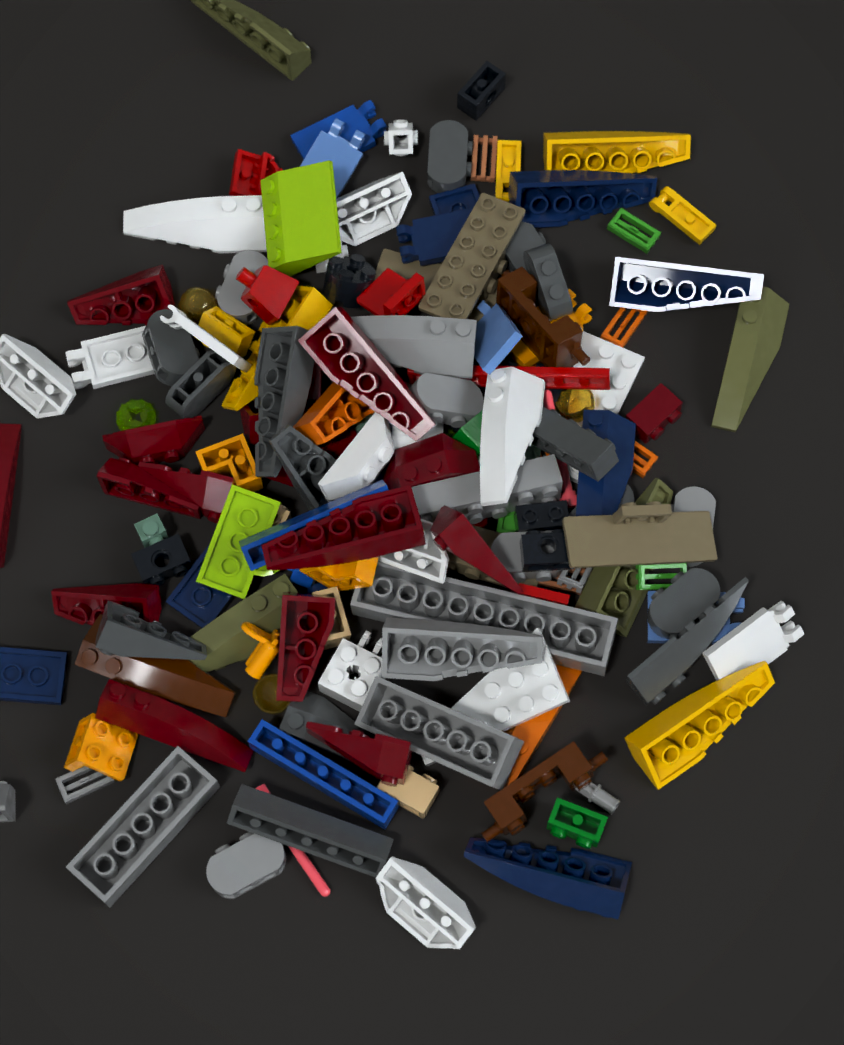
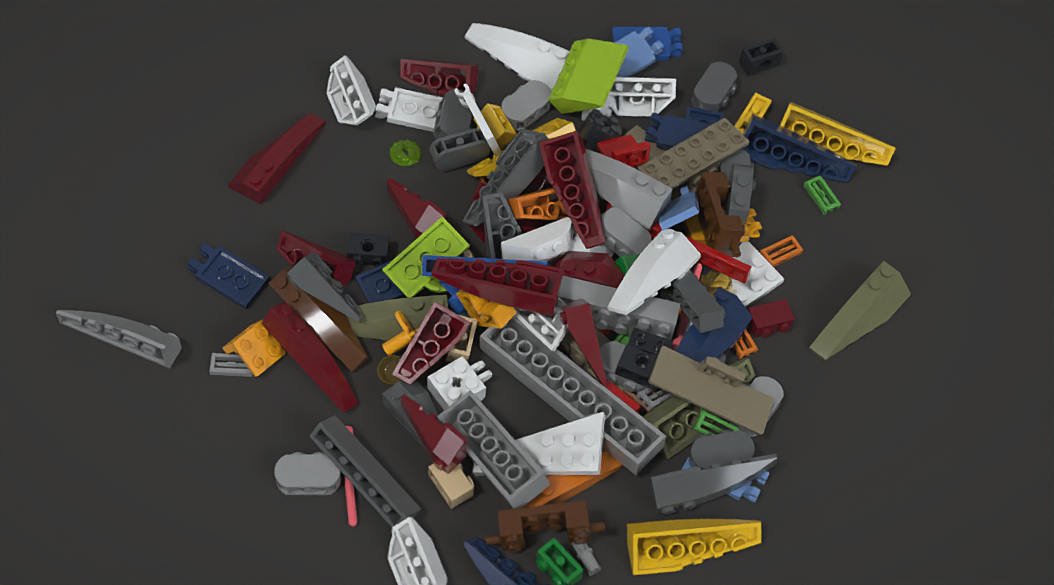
camera: 20 degrees right, 10 degrees down
(130, 482) = (377, 191): dark red wedge -> none
(143, 826) = (252, 412): light grey brick -> none
(151, 530) = (371, 224): sand green brick -> none
(157, 441) = (411, 171): dark red wedge -> none
(195, 302) = (488, 96): clear yellow hair -> none
(233, 459) = (454, 204): light orange brick -> none
(248, 172) = (570, 33): red slope -> none
(266, 291) = (538, 110): red torso -> none
(323, 774) = (397, 441): blue brick -> none
(404, 145) = (681, 61): white brick -> none
(447, 649) = (532, 397): light grey wedge -> none
(485, 141) = (746, 91): nougat tile -> none
(677, 286) = (832, 240): wedge -> none
(683, 215) = (863, 200): yellow plate -> none
(754, 641) = (760, 504): white tile -> none

